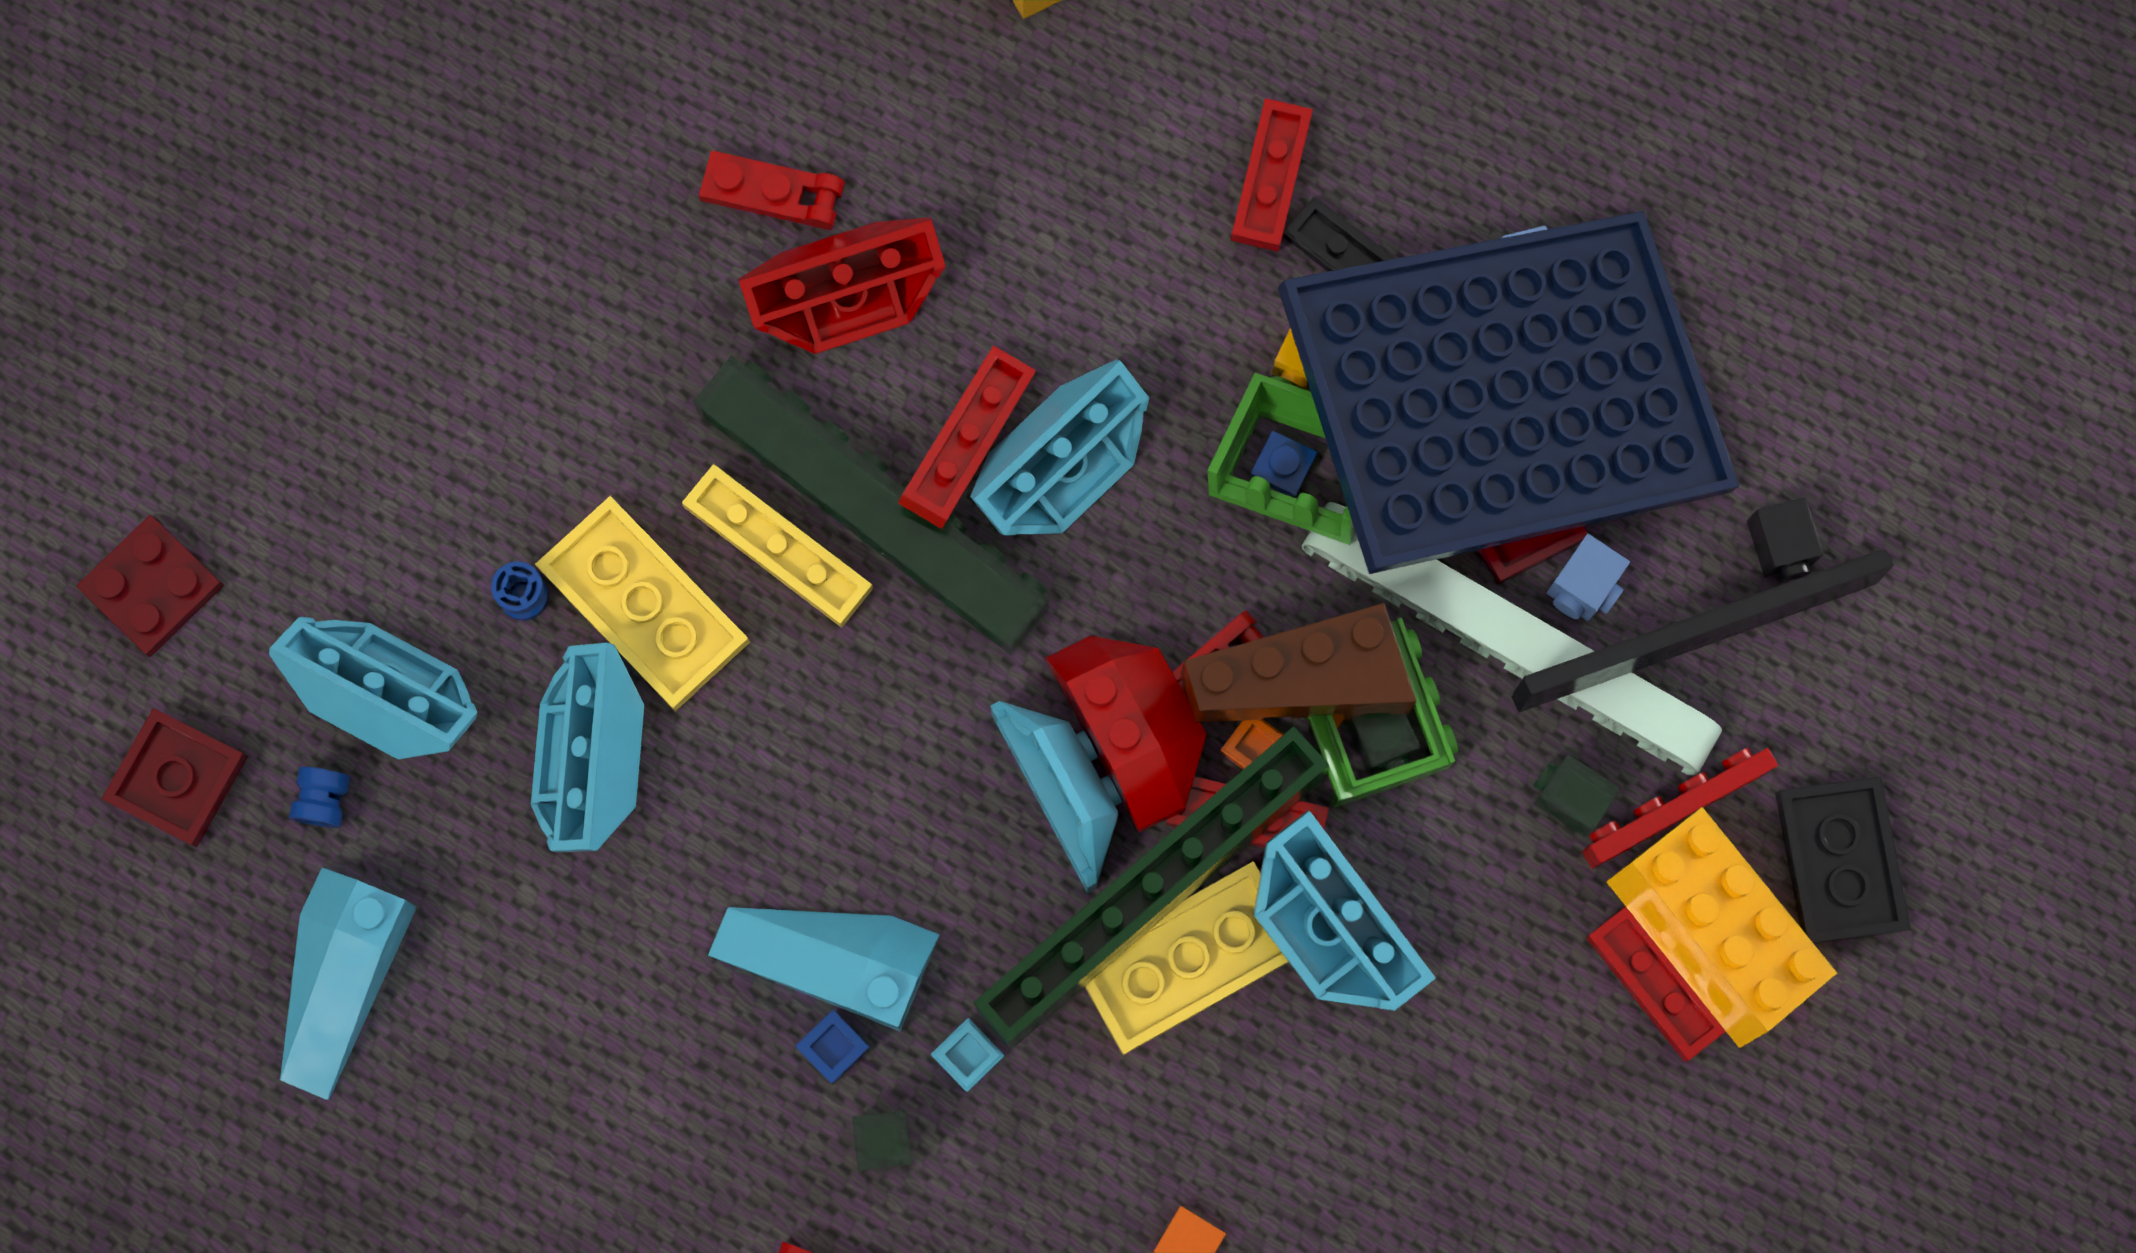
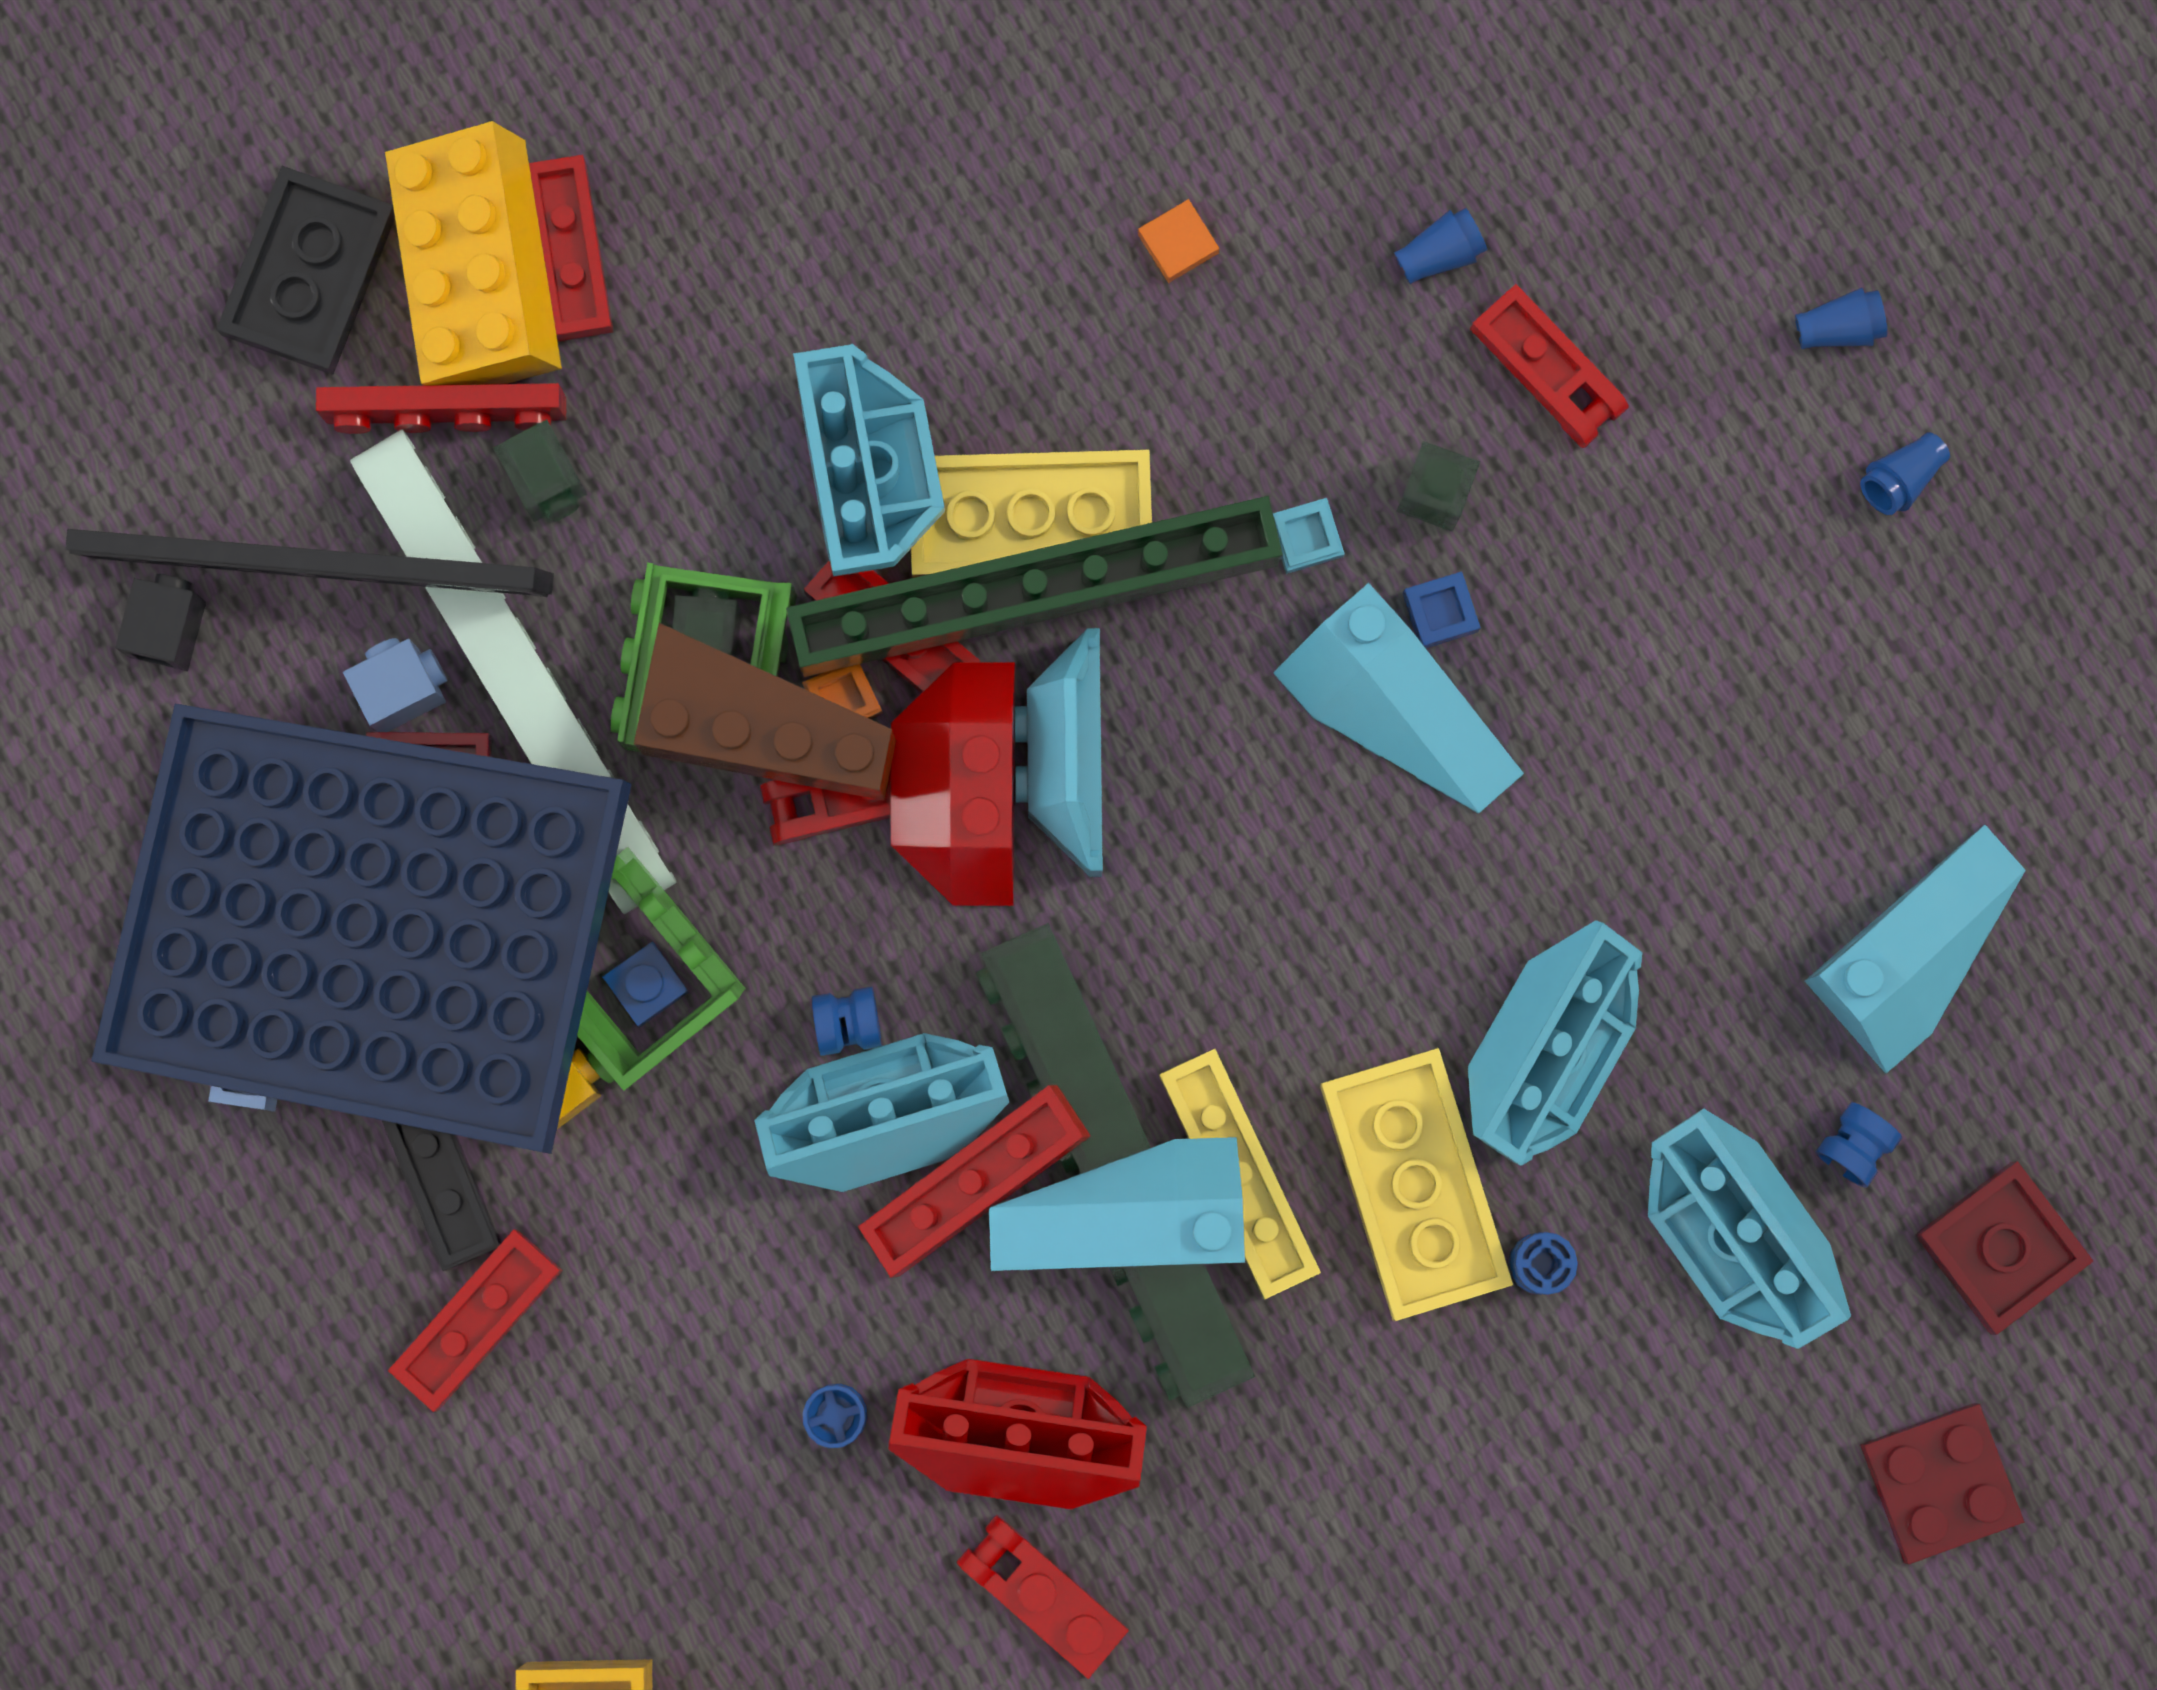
camera: 155 degrees left, 5 degrees up
(833, 466) = (1144, 1210): none -> medium azure wedge
(982, 224) = (827, 1419): none -> blue wheel
(1122, 508) = (861, 1021): none -> blue wheel

